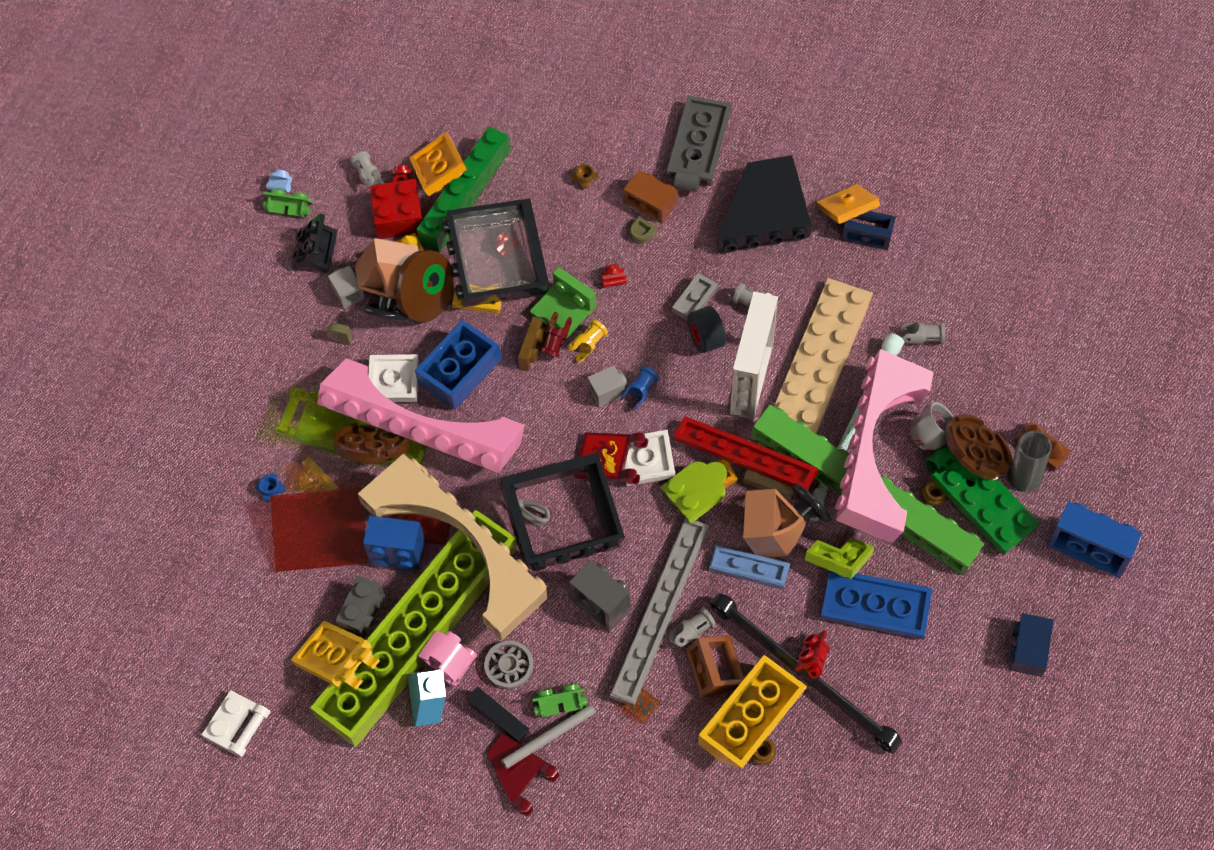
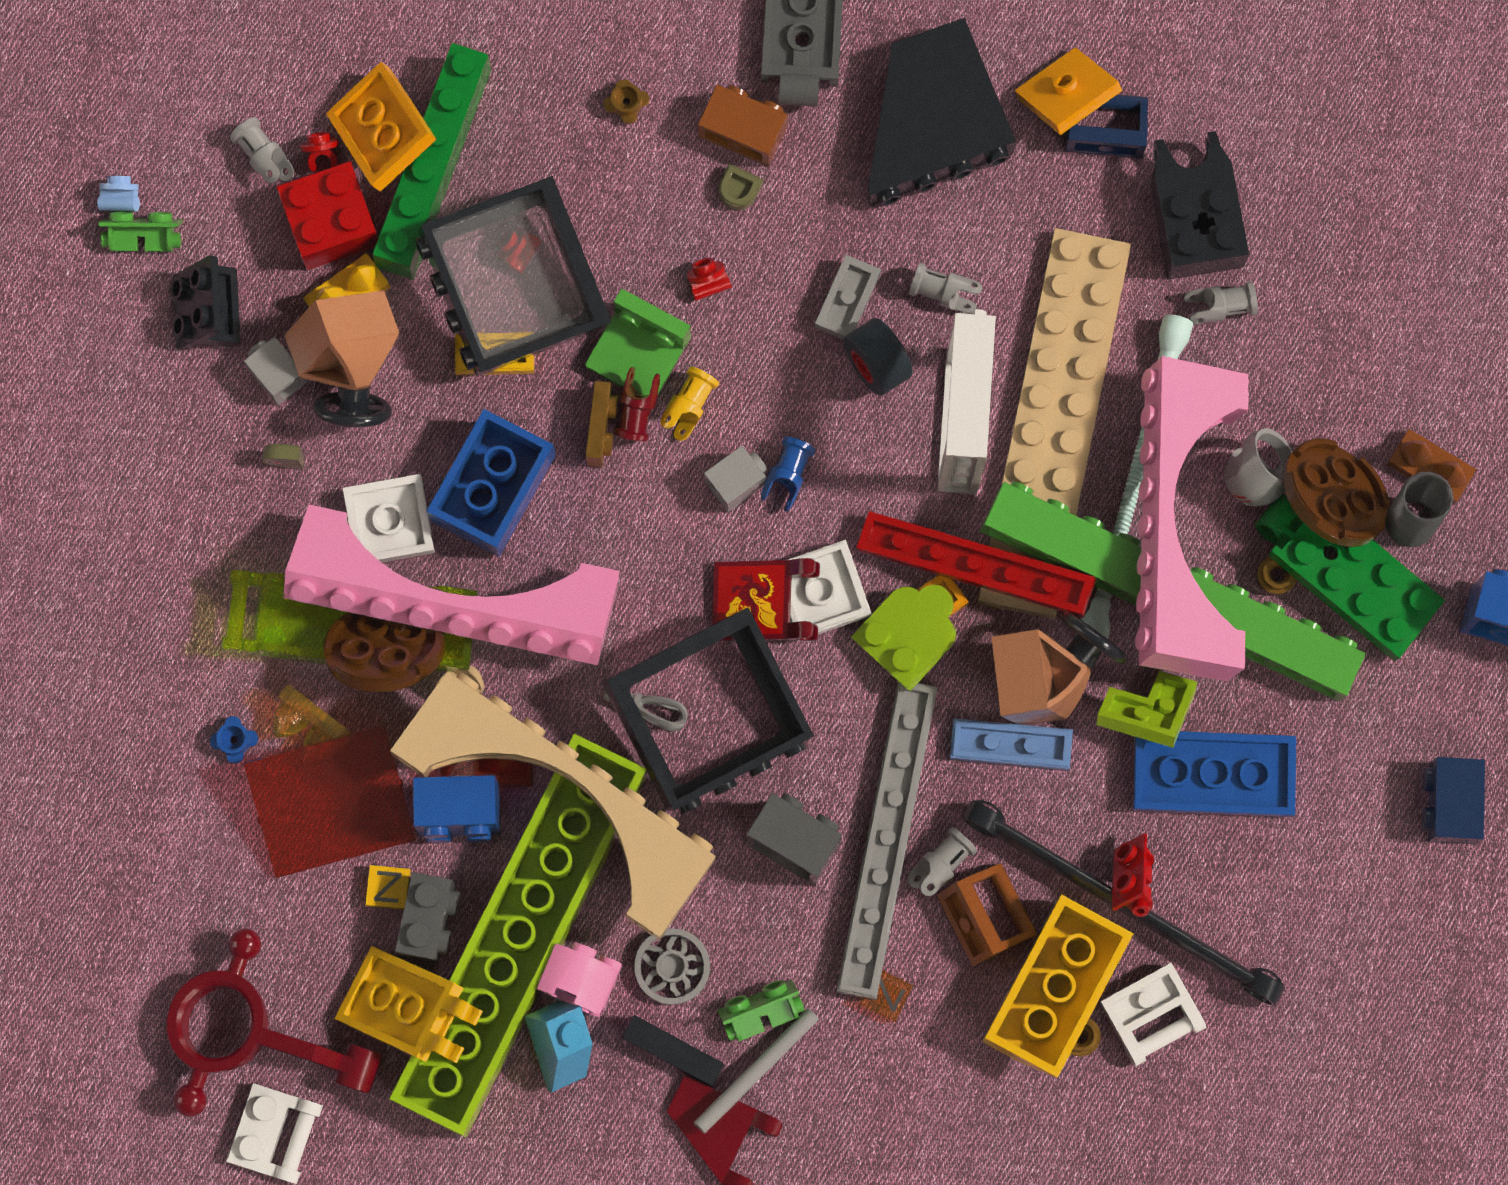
camera: 15 degrees left, 15 degrees up
(293, 690) = (355, 1068): none -> dark red piece
(340, 587) = (387, 887): none -> yellow tile
(424, 285) = (409, 358): reddish brown tile -> none
(810, 736) = (1147, 1001): none -> white plate
(916, 281) = (1198, 198): none -> black brick

